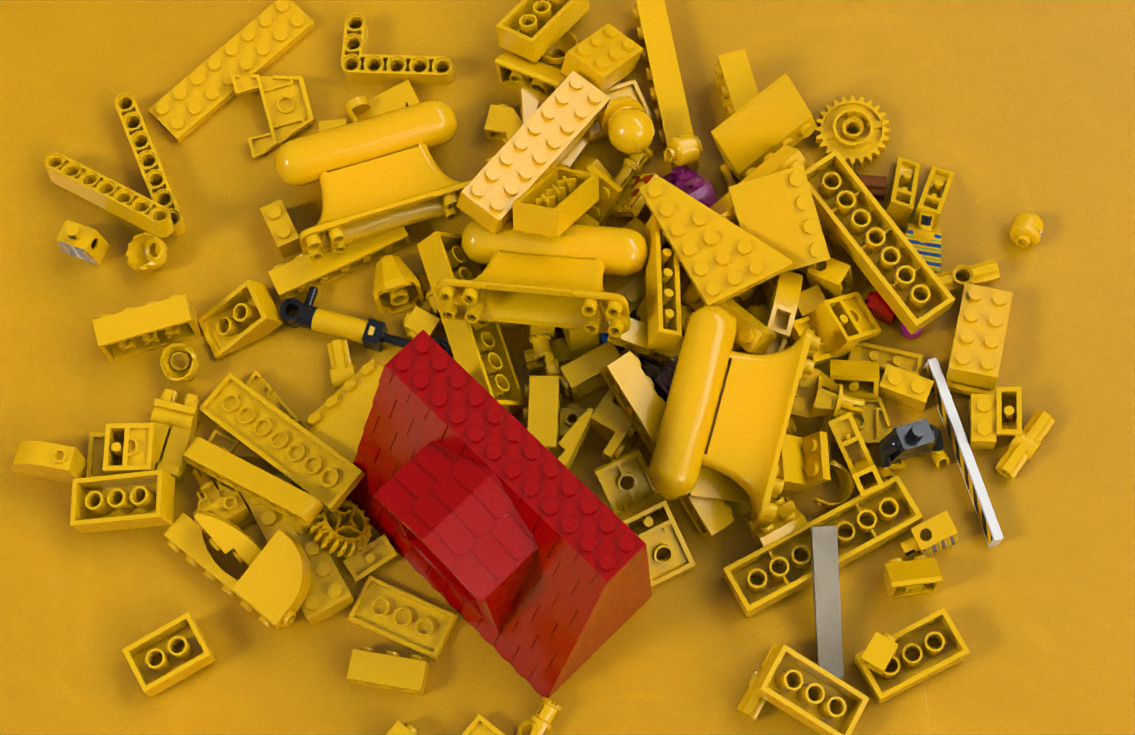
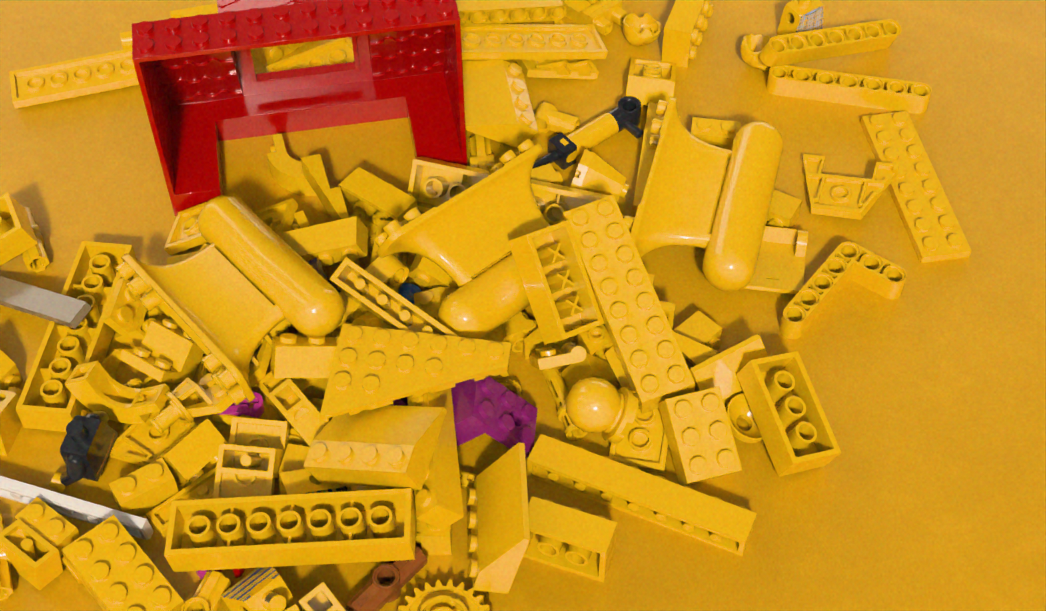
camera: 115 degrees right, 20 degrees down
(630, 200) = (531, 387): tile -> none
(684, 149) = (539, 439): yellow head -> none

